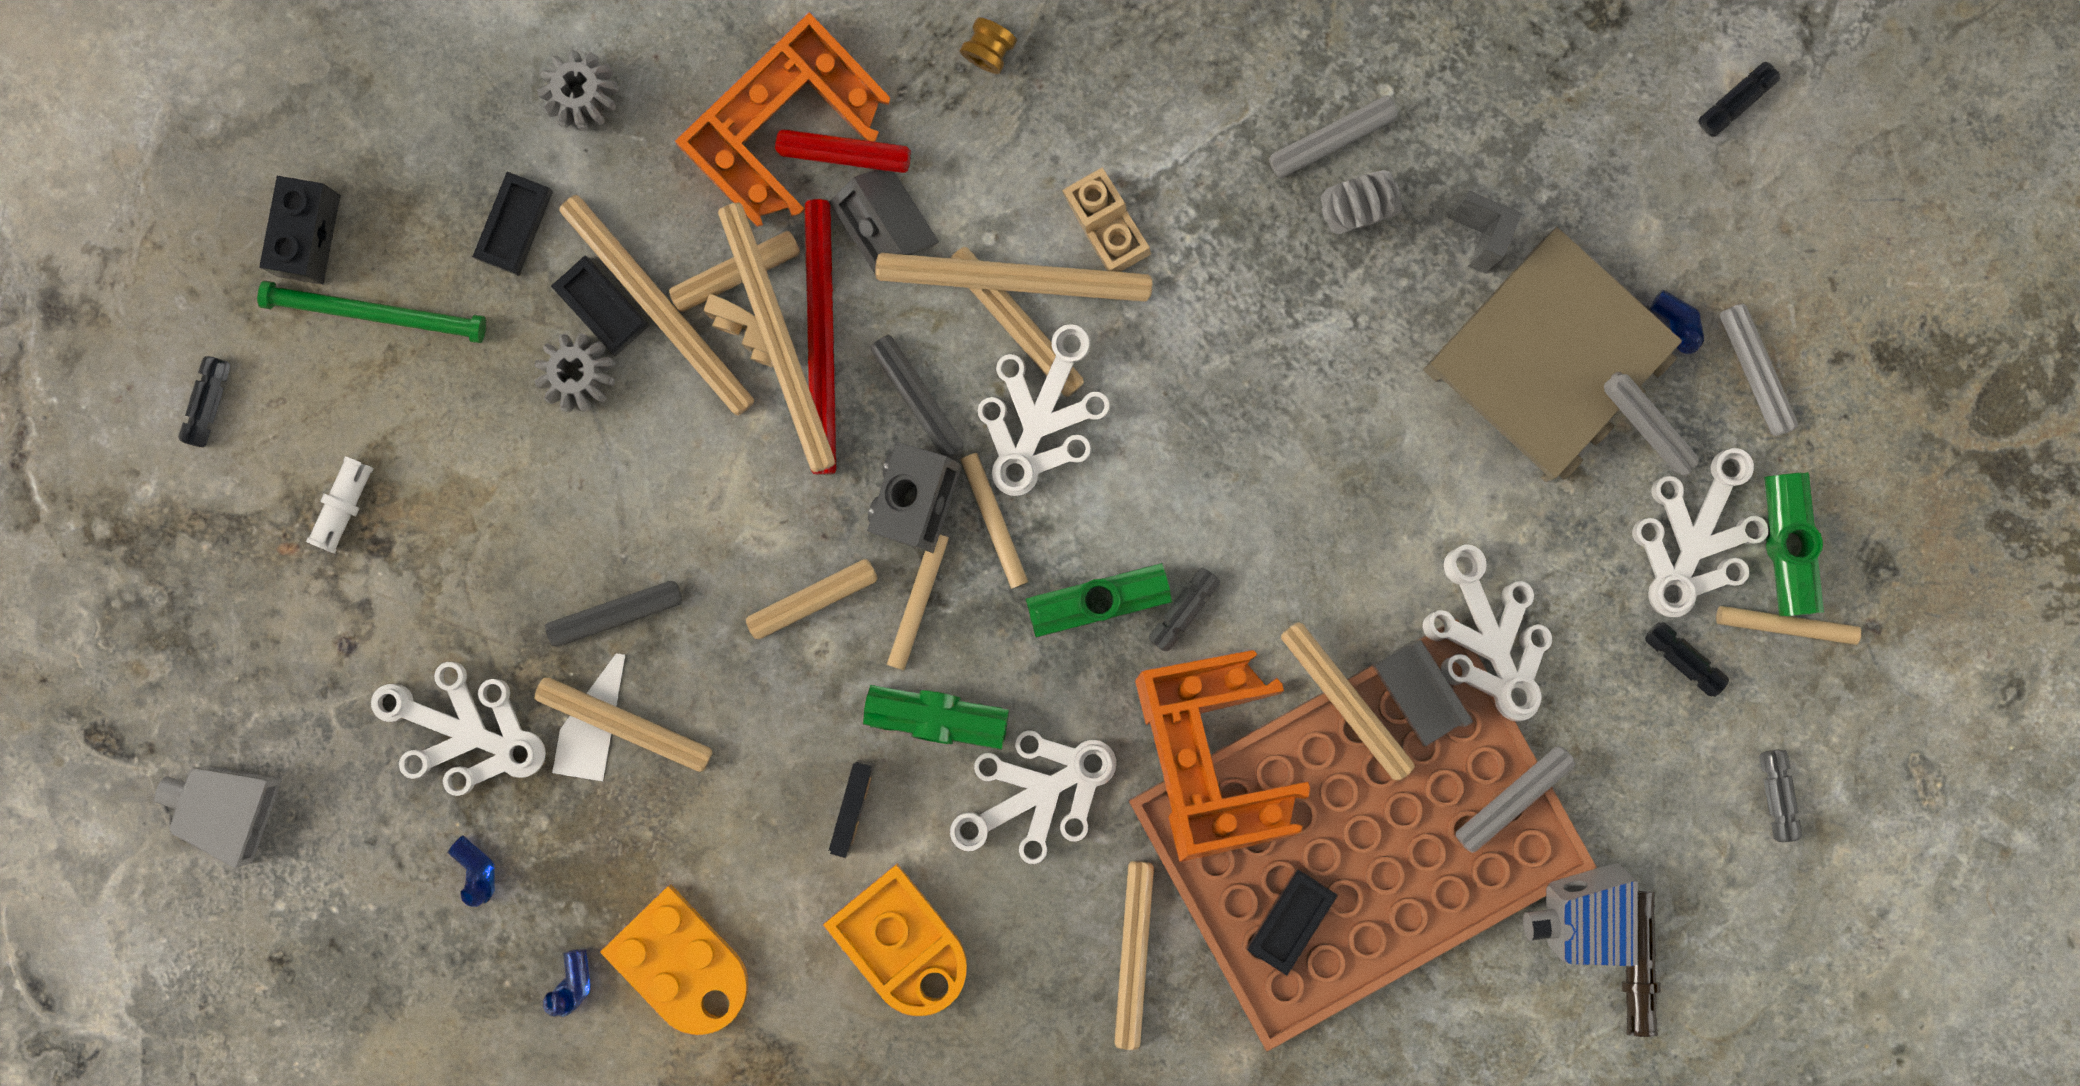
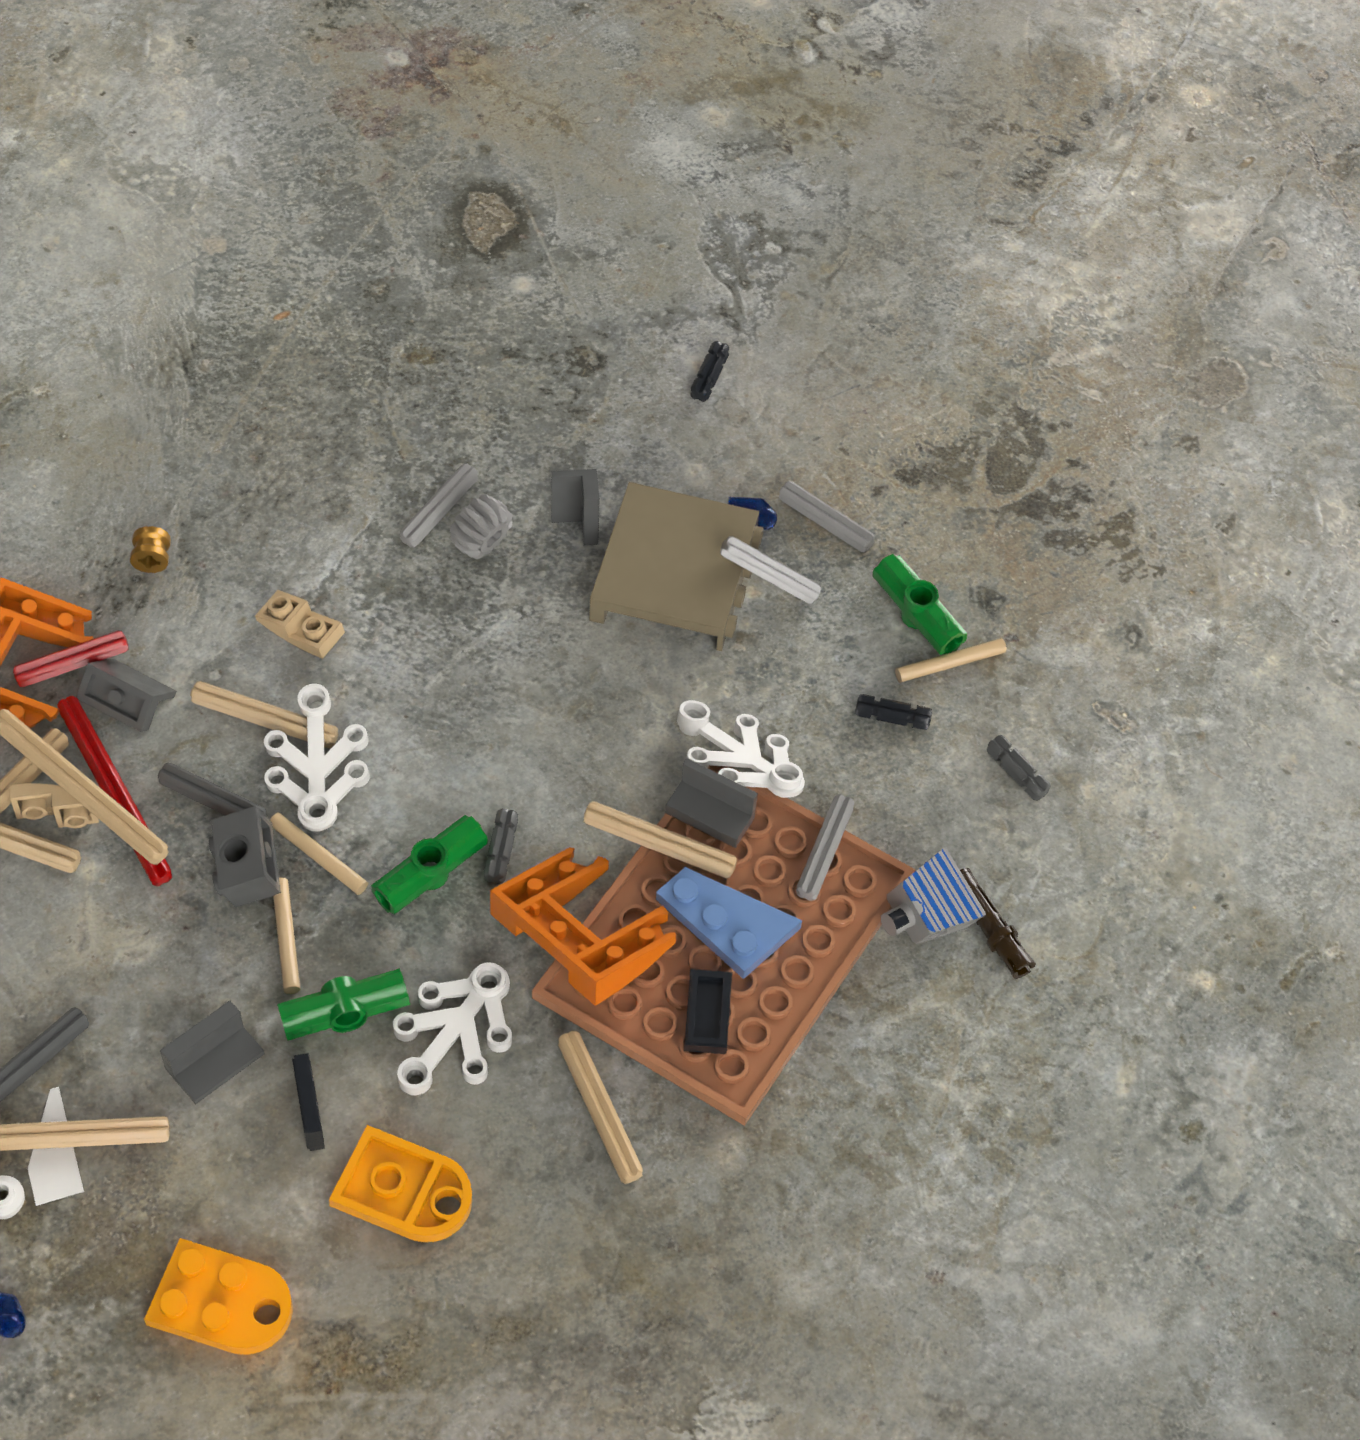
camera: 30 degrees left, 30 degrees down
(572, 988) = (135, 1361): clear blue arm -> none
(785, 703) = (211, 1053): none -> dark grey panel
(811, 599) = (197, 971): tan axle -> none
(1013, 277) = (245, 680): tan axle -> none
(1366, 830) = (726, 920): none -> medium blue wing
(1696, 539) = (851, 635): white plant -> none

